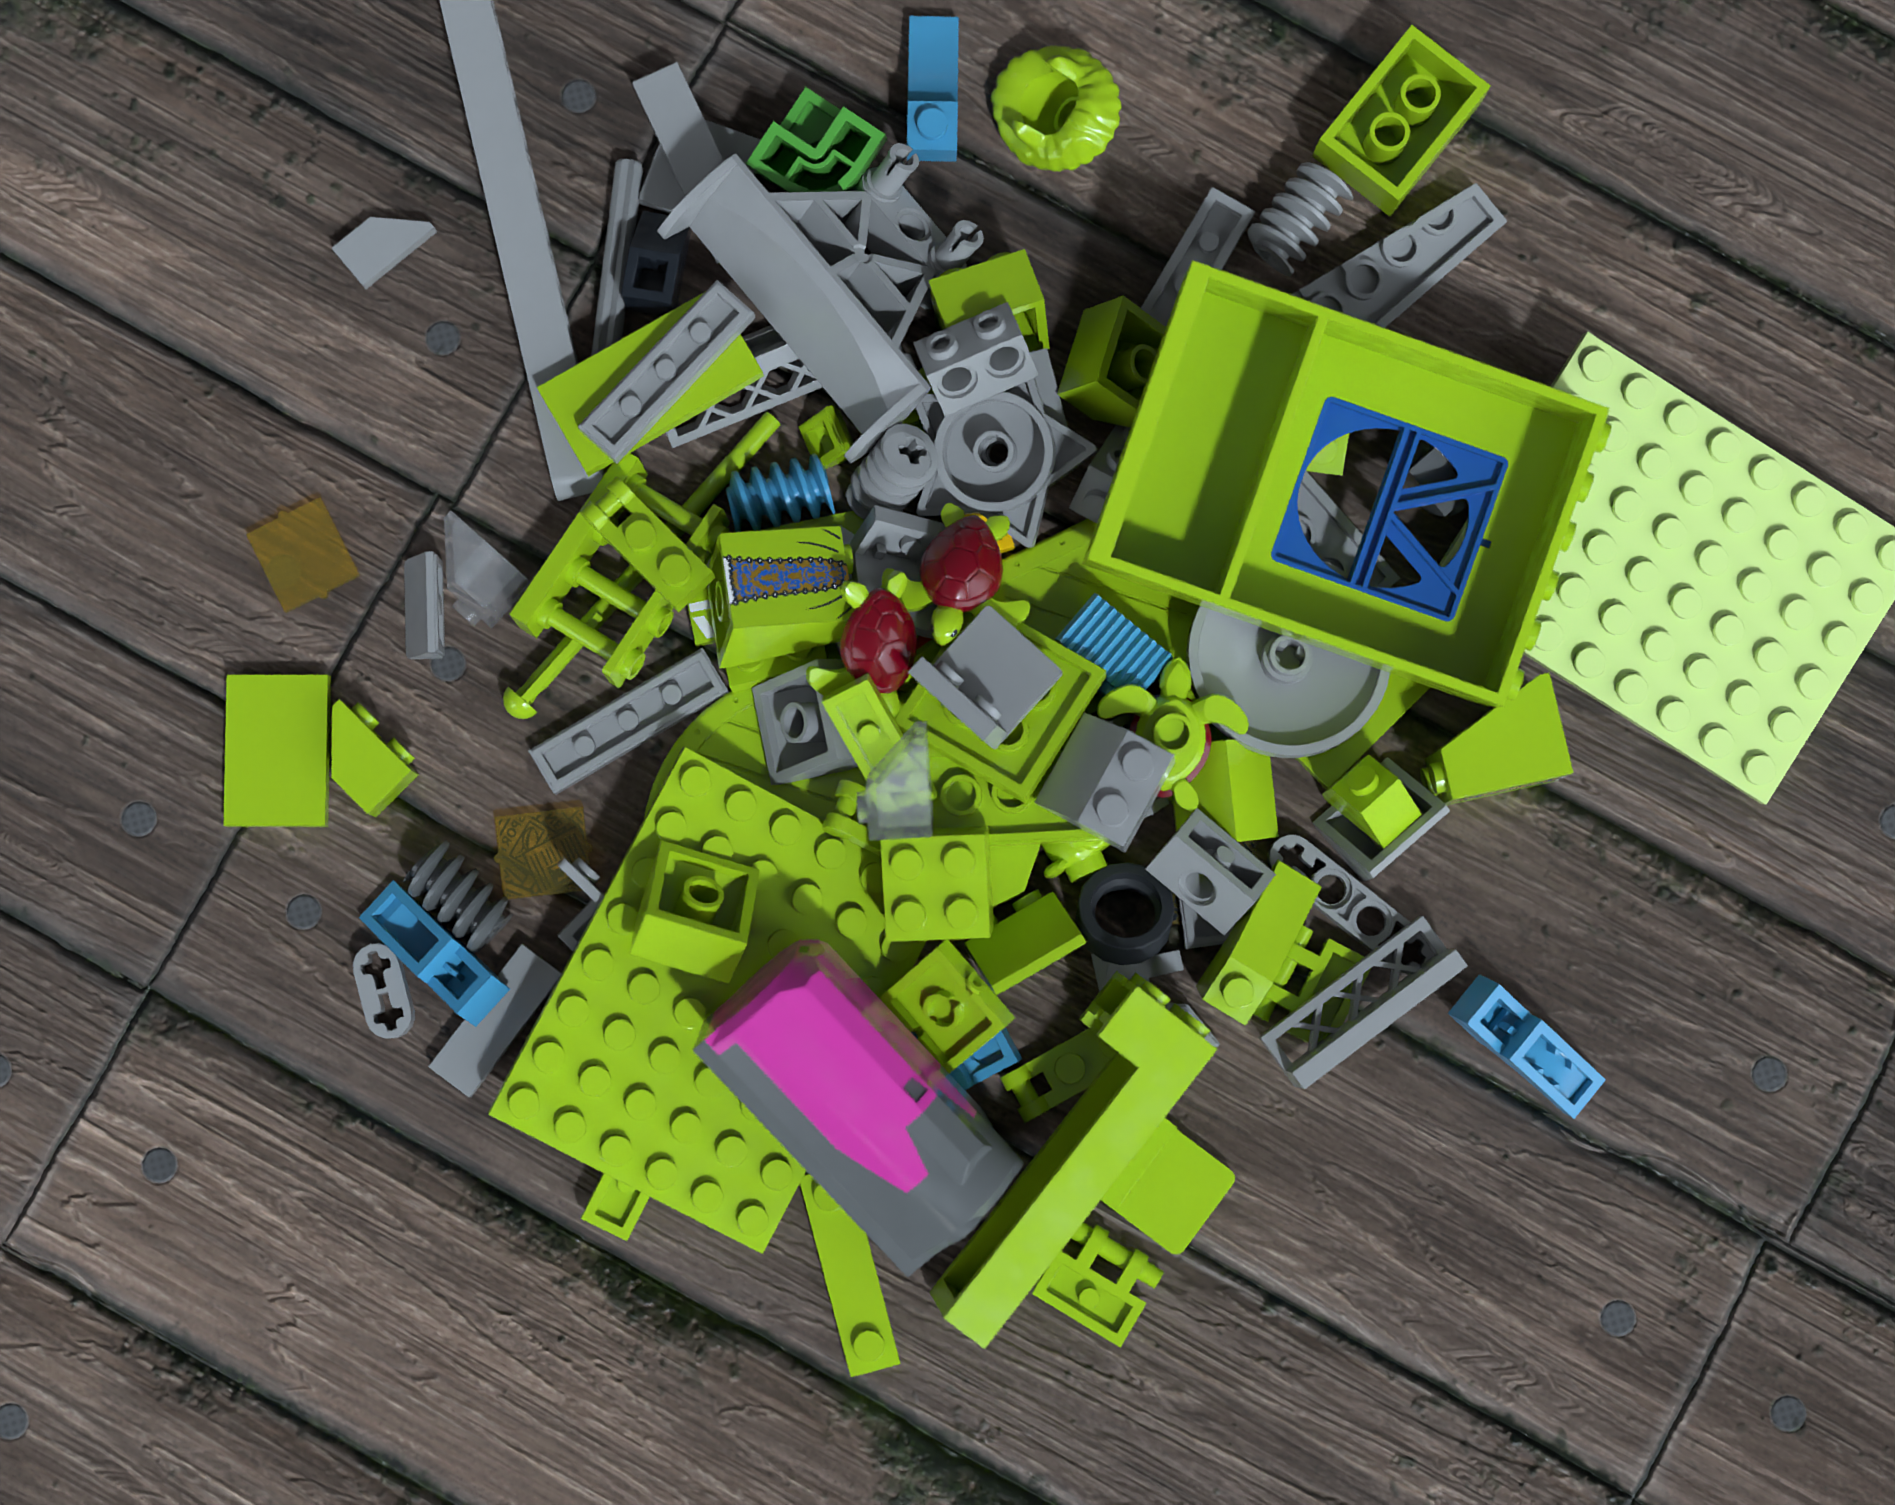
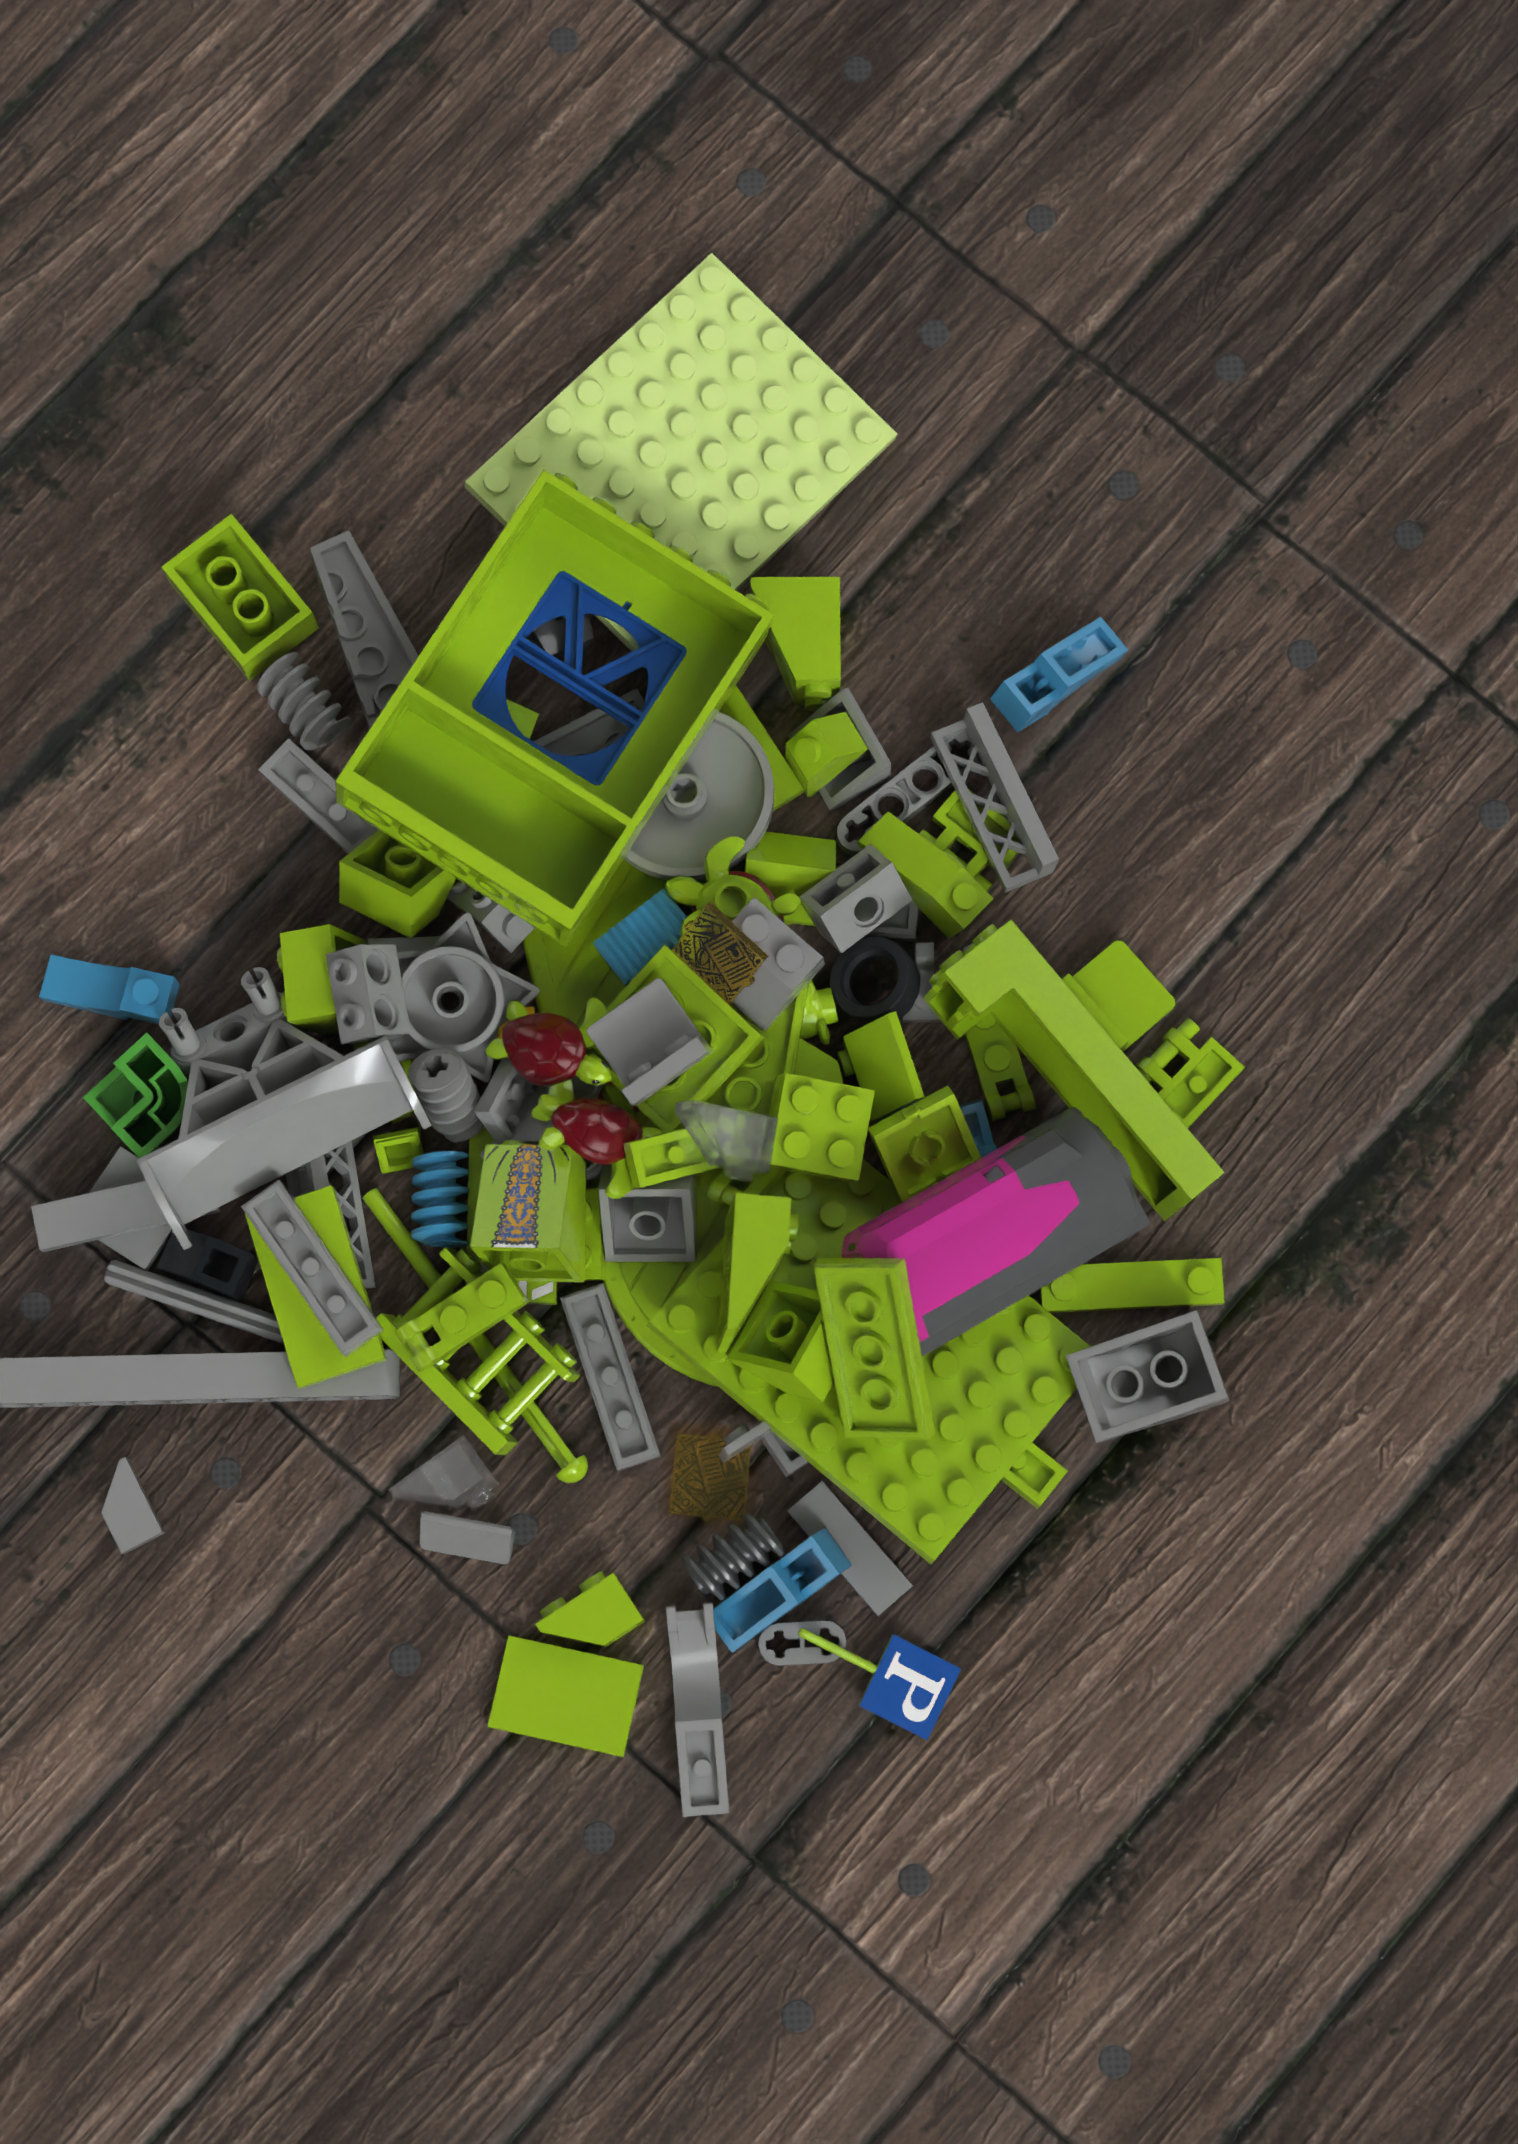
camera: 70 degrees left, 5 degrees down
(285, 895) = (698, 1711): none -> light grey piece
(303, 555) = (393, 1638): clear yellow piece -> none
(362, 1113) = (905, 1685): none -> blue piece
(693, 997) = (874, 1348): none -> lime tile
(745, 1310) = (1148, 1377): none -> light grey slope
(786, 842) = (754, 1242): none -> lime slope
(1056, 107) = (155, 886): lime piece -> none
(1104, 732) = (719, 953): none -> clear yellow piece

